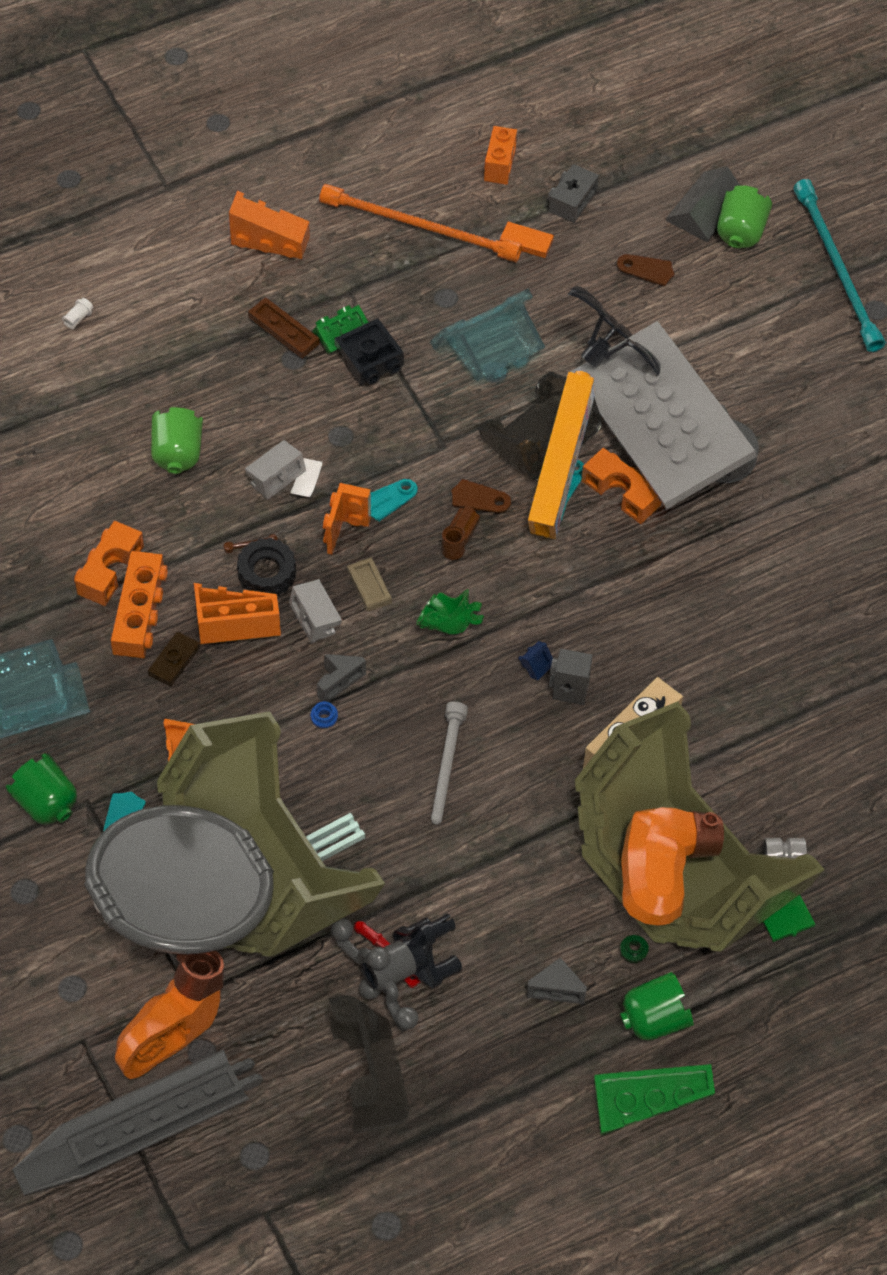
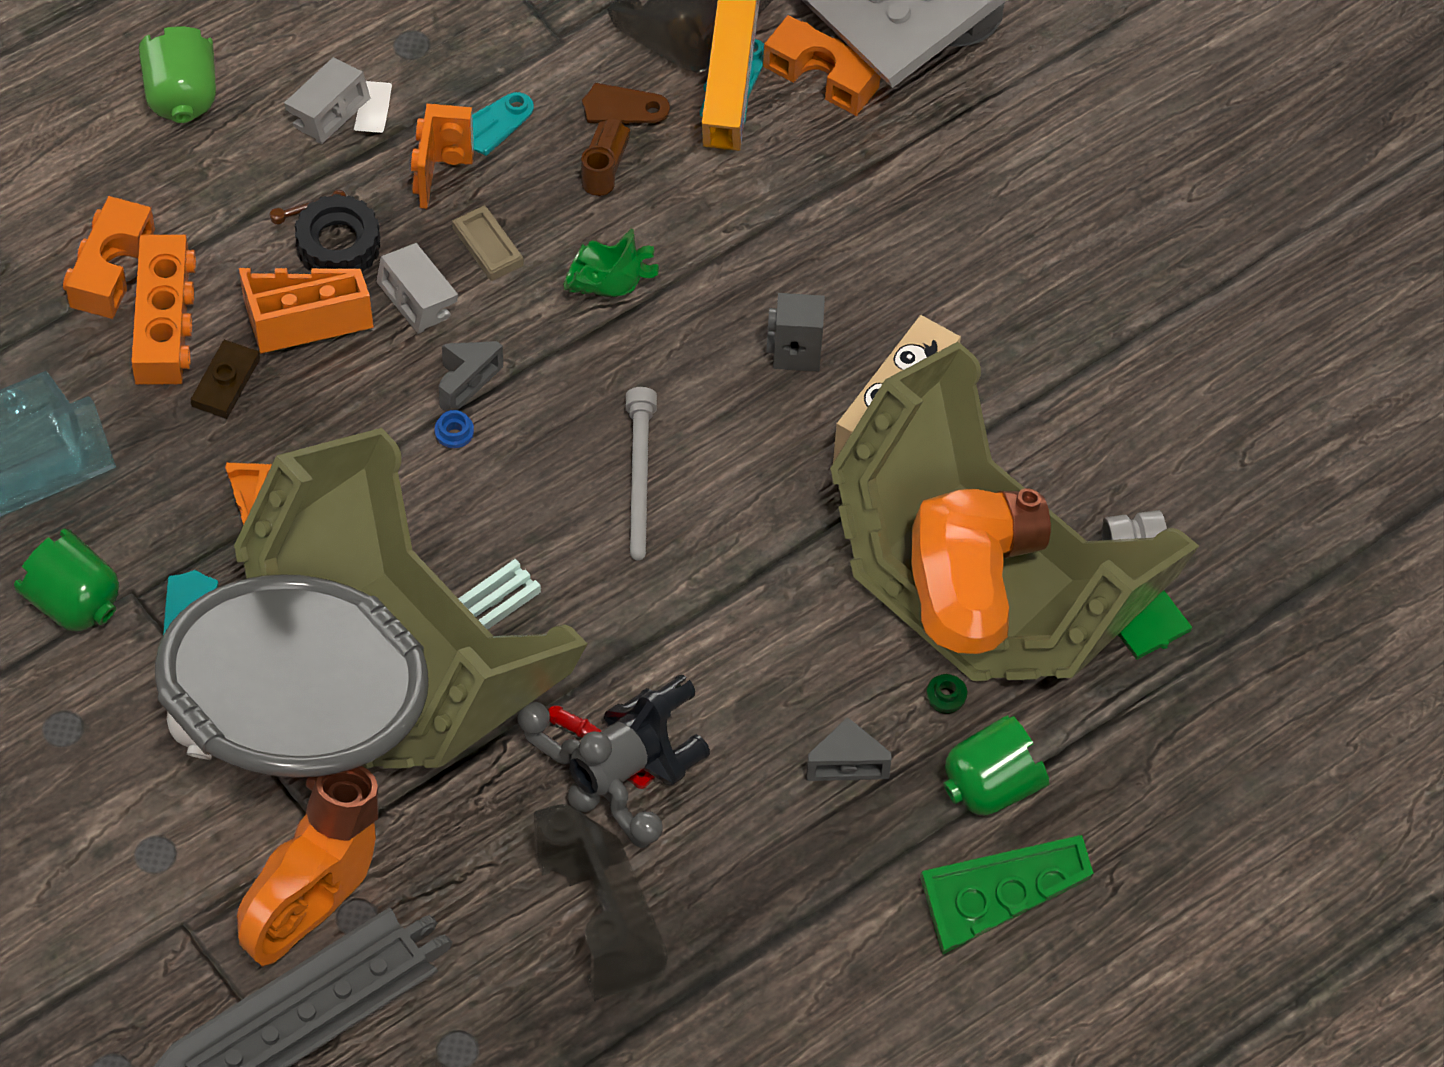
camera: 10 degrees left, 0 degrees up
(537, 660) = (743, 317): dark blue tile -> none

